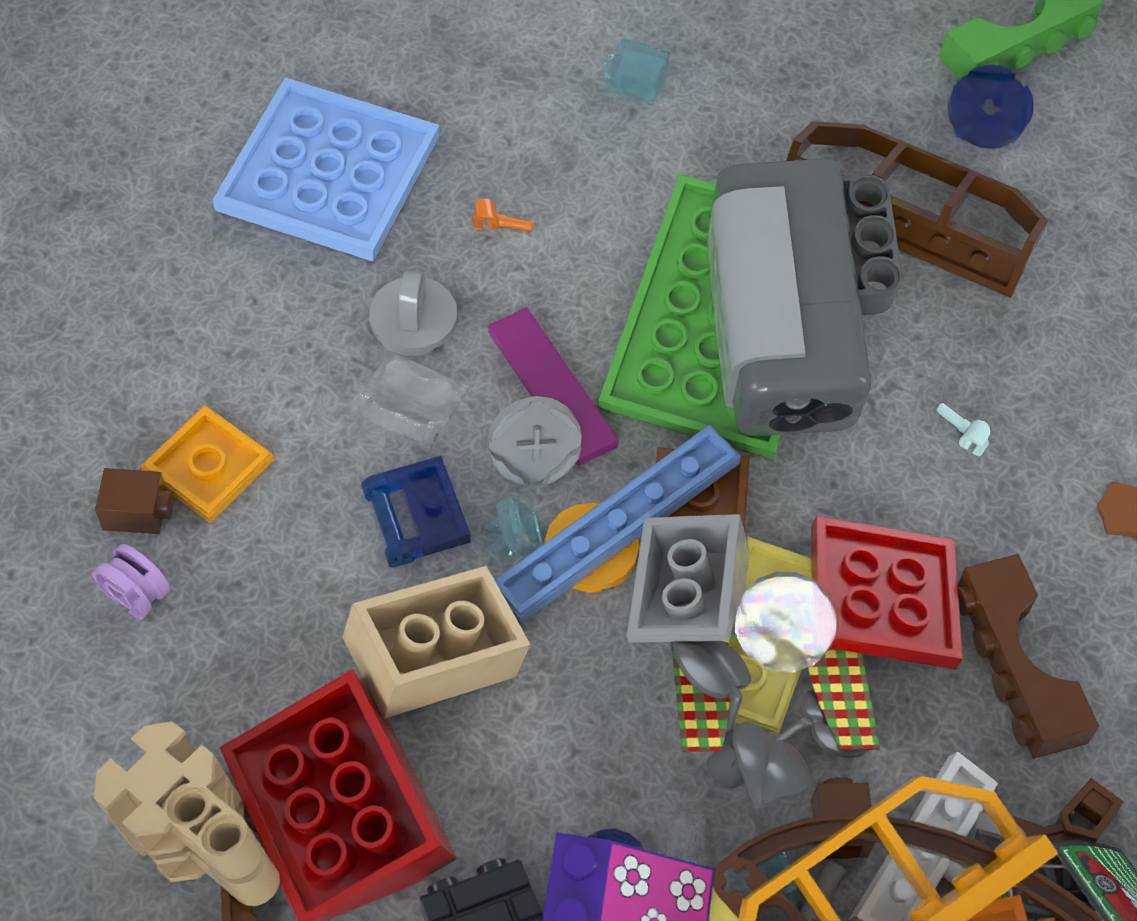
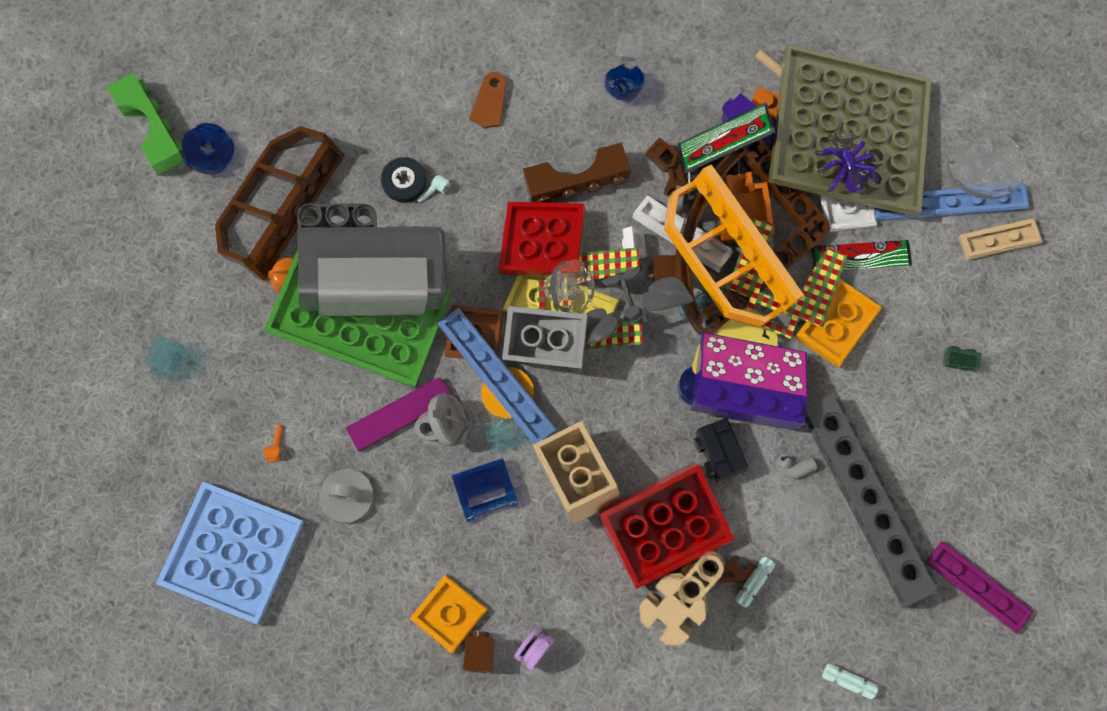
camera: 85 degrees left, 15 degrees up
(898, 758) = (634, 238): none -> white plate
(974, 402) = (410, 190): none -> black bush

